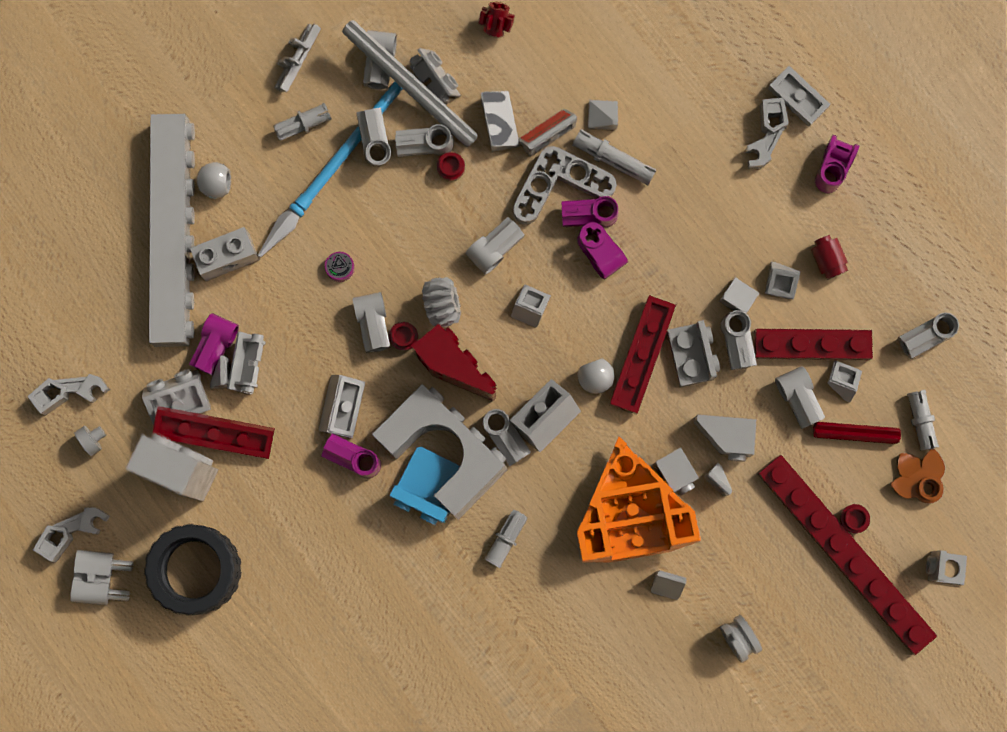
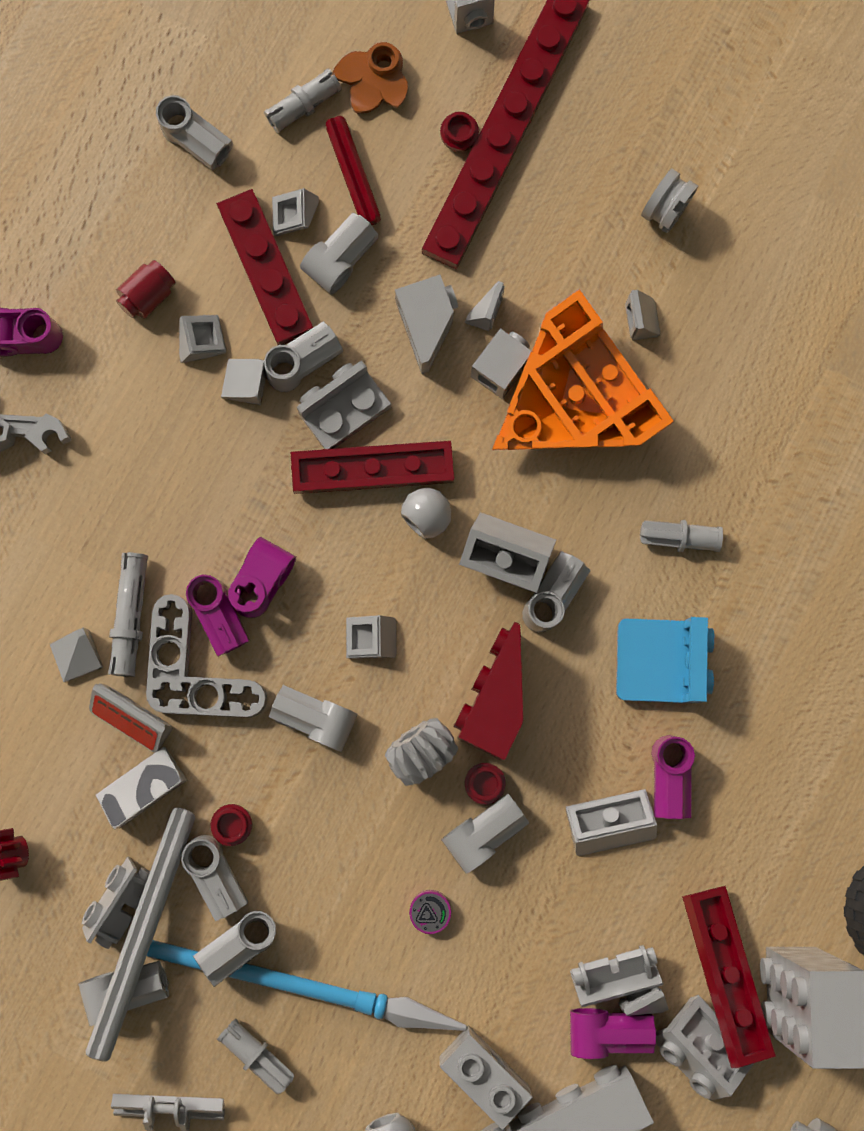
camera: 115 degrees left, 0 degrees up
(426, 413) = (607, 606): light grey arch -> none

